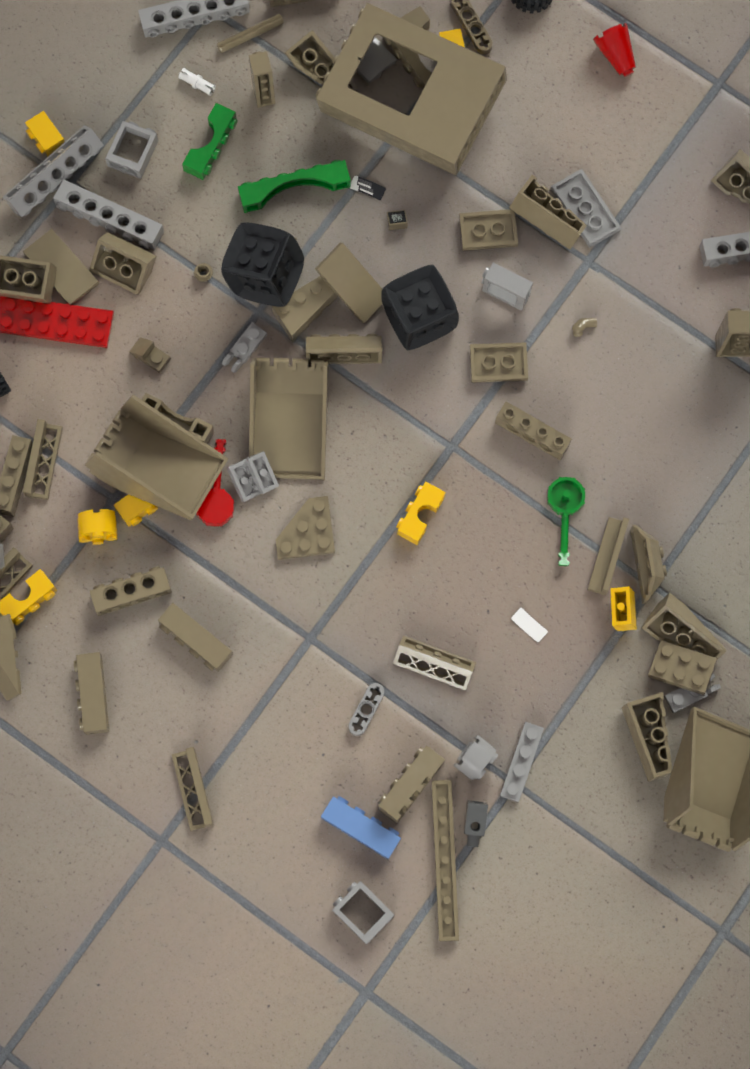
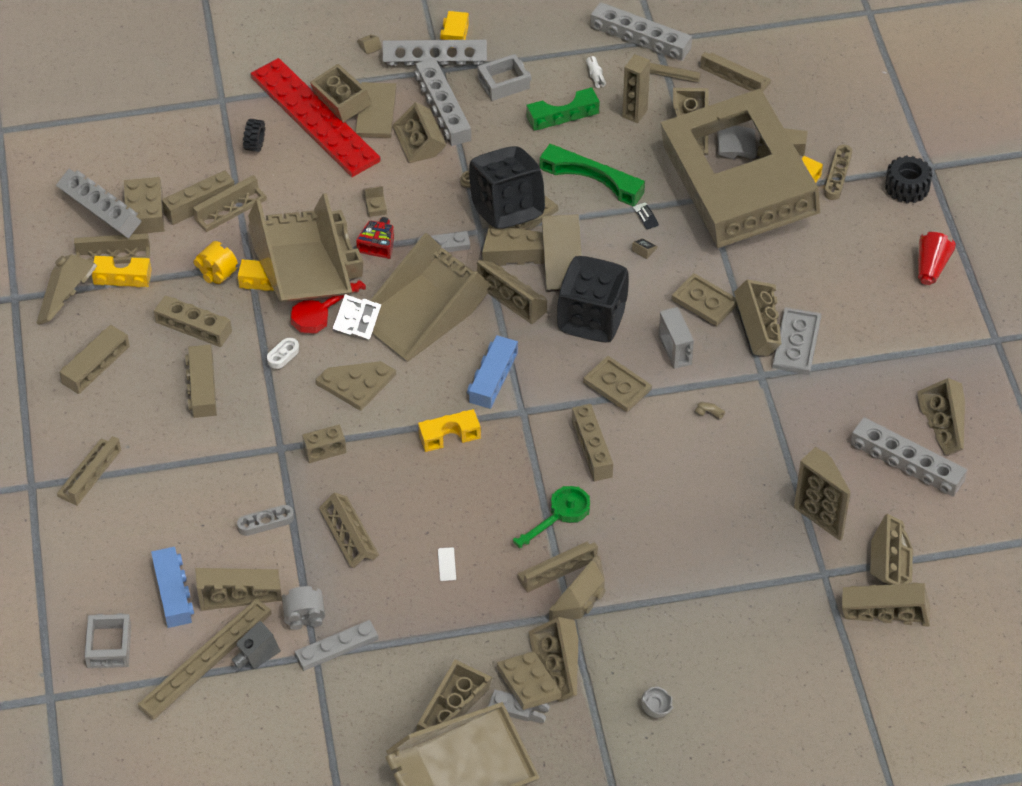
camera: 45 degrees right, 25 degrees down
(192, 389) = (377, 238): none -> torso
(228, 558) = (281, 355): none -> white plate
(344, 608) = (324, 443): none -> dark tan brick
(401, 433) = (492, 372): none -> medium blue brick
(623, 608) = (527, 603): yellow brick -> none

